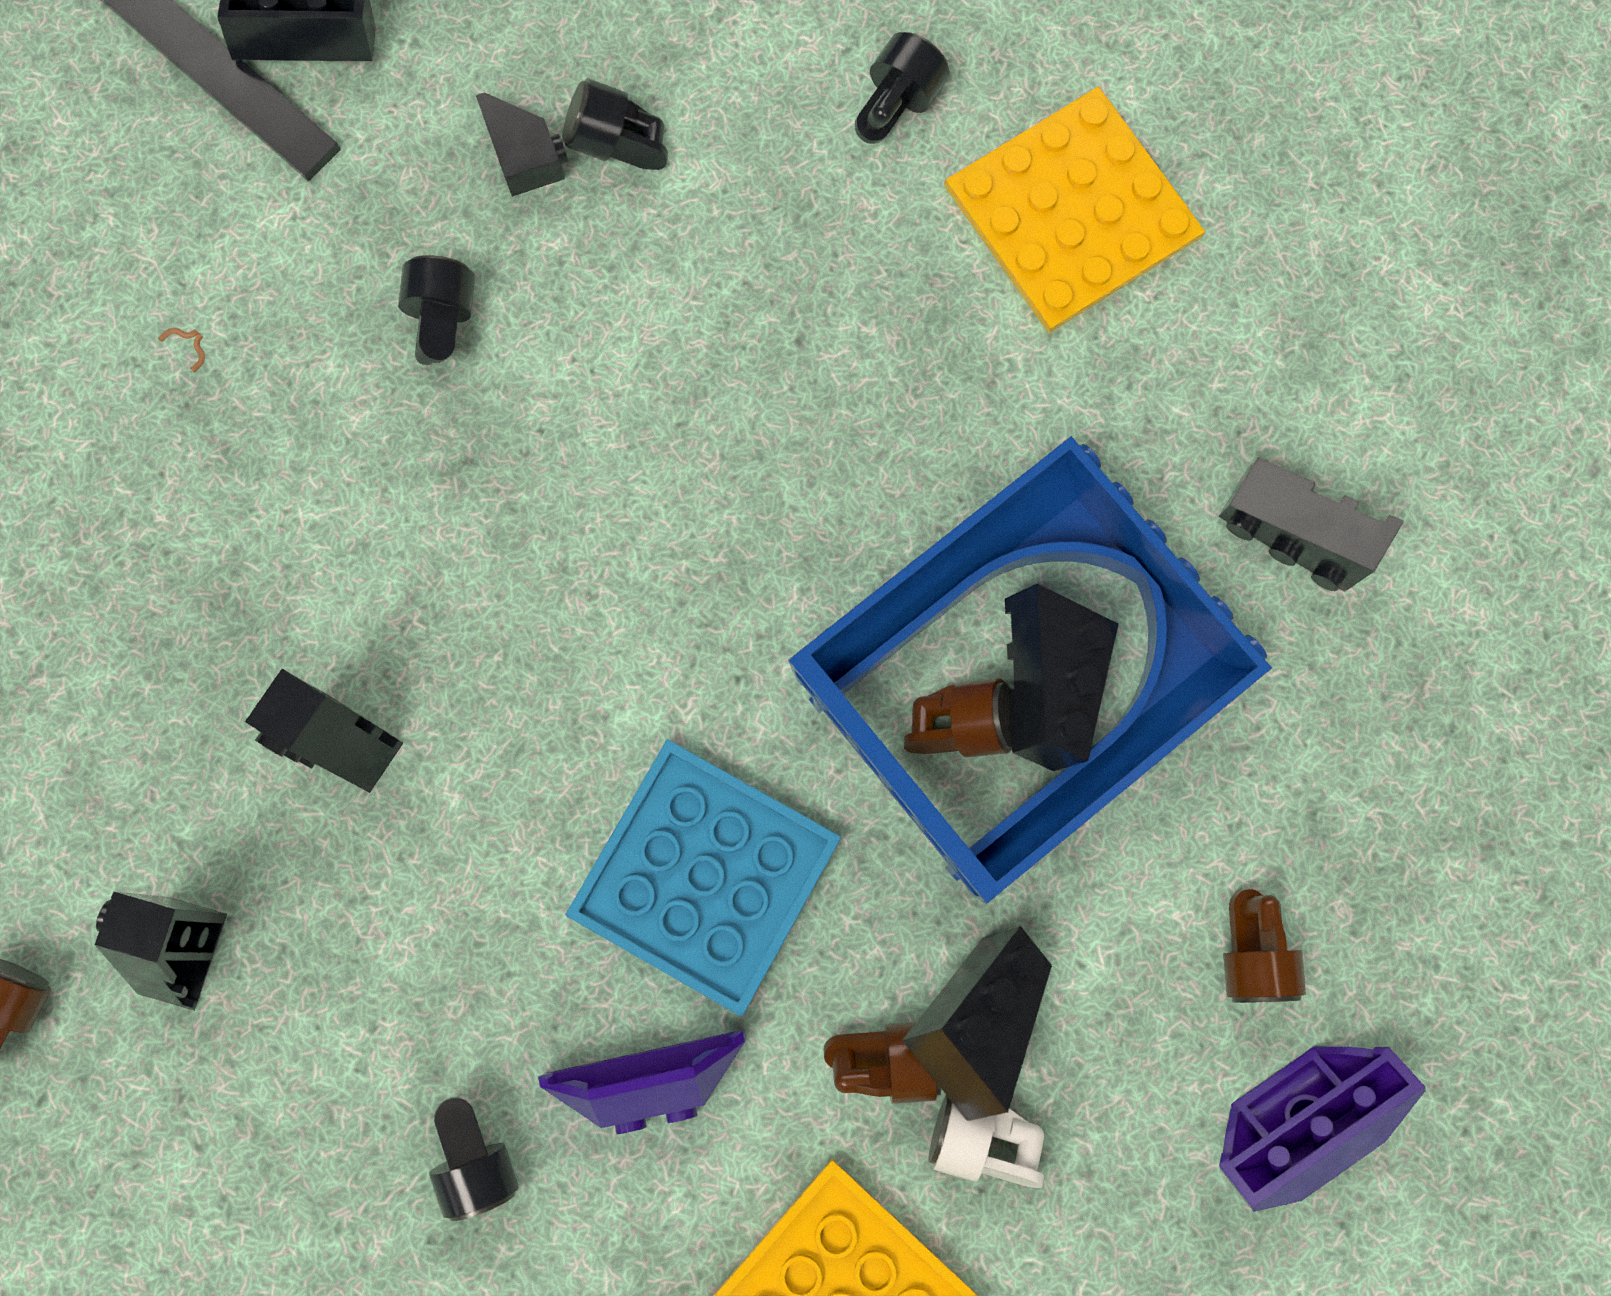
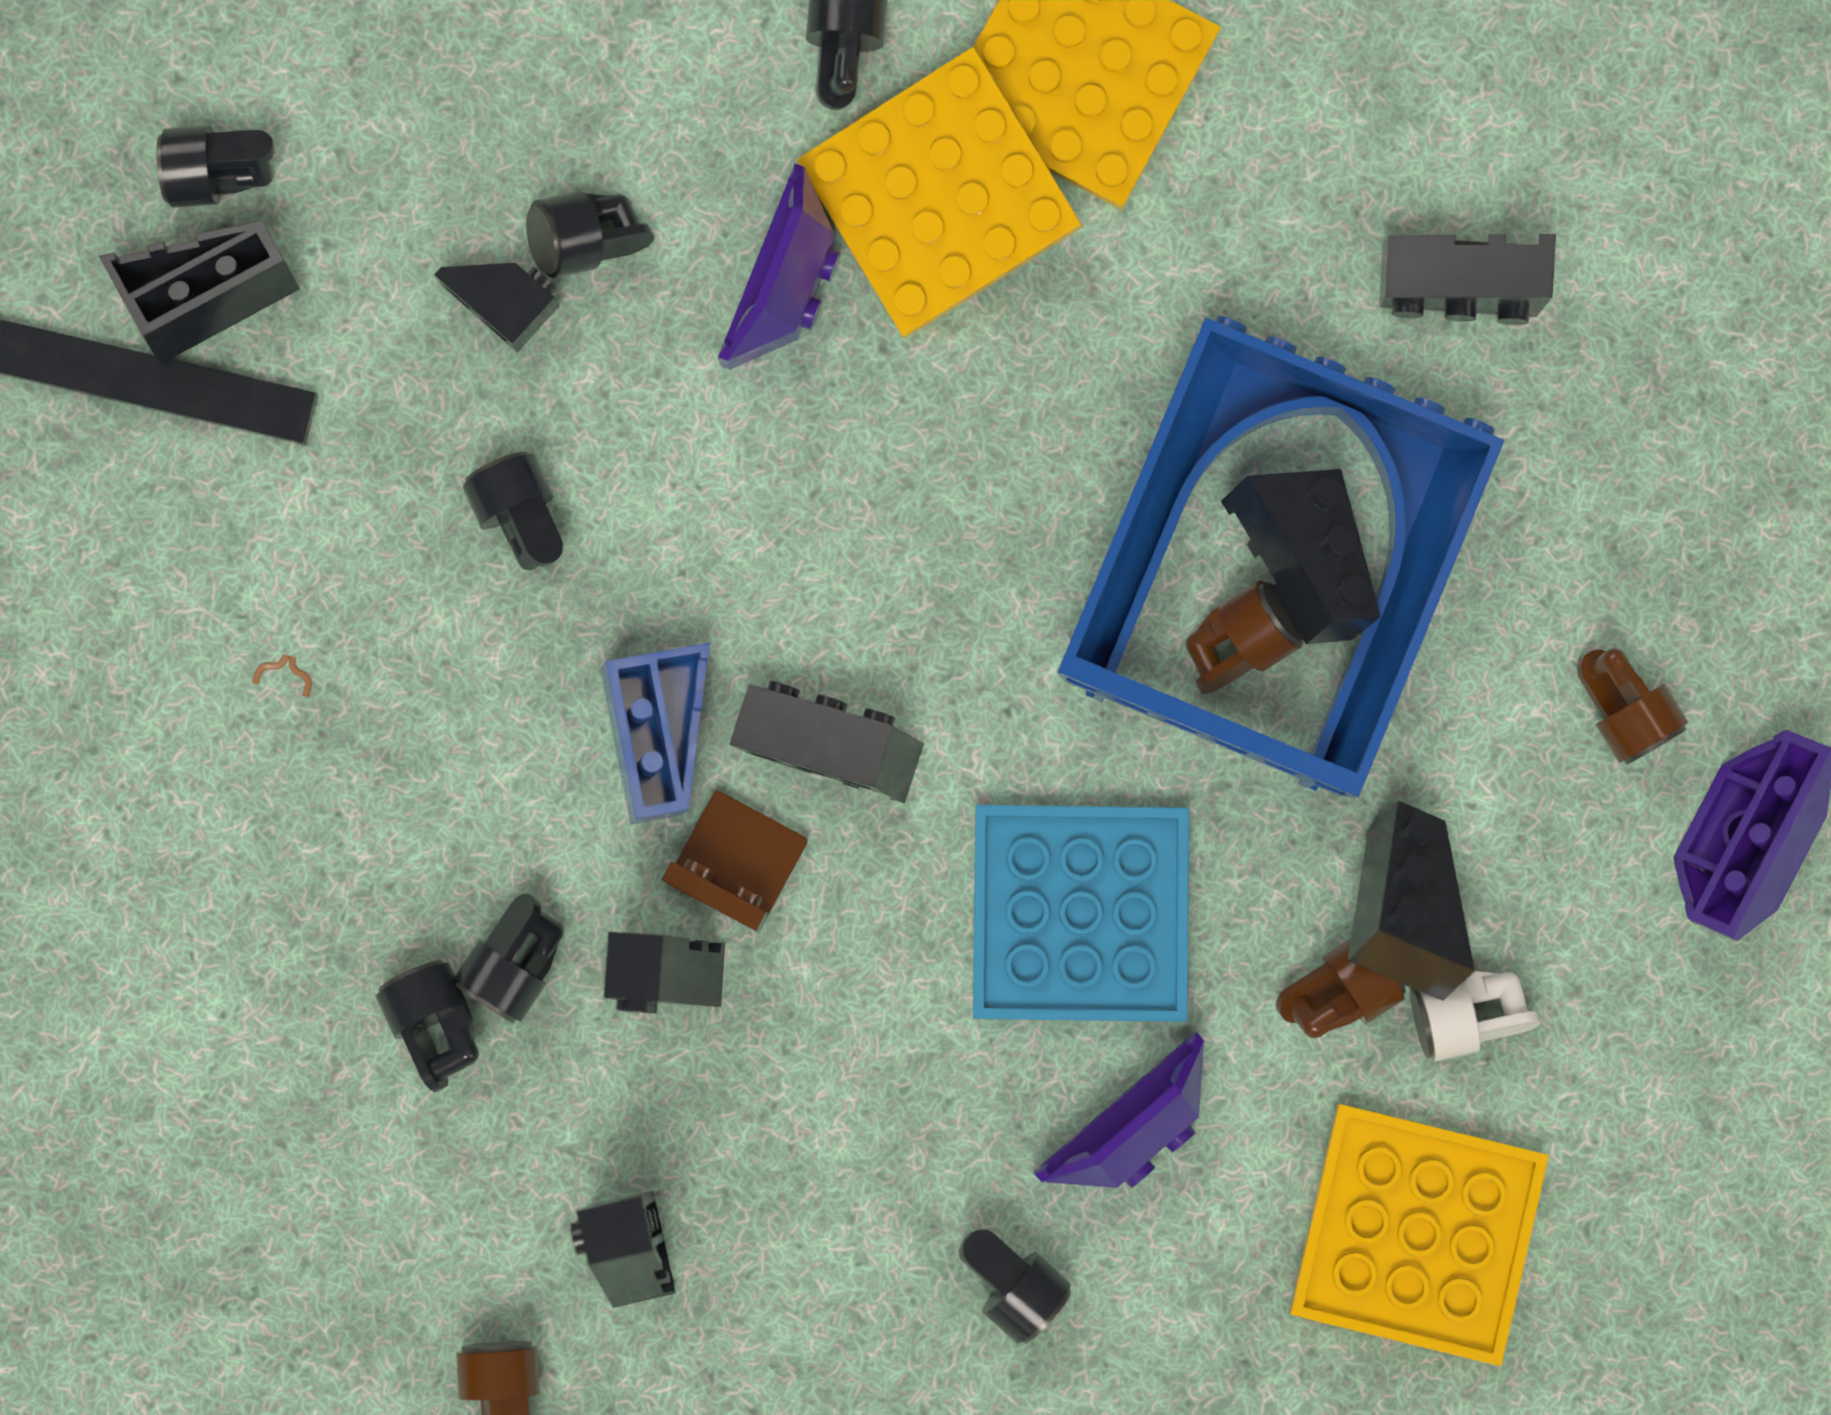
camera: 25 degrees left, 5 degrees up
(120, 654) = (421, 1000): none -> black piece
(199, 671) = (499, 981): none -> black piece
(444, 535) = (655, 725): none -> blue wedge
(445, 681) = (736, 861): none -> reddish brown bracket
(576, 622) = (827, 739): none -> black wedge
(749, 243) = (784, 277): none -> dark purple wedge
(910, 242) = (939, 193): none -> yellow plate

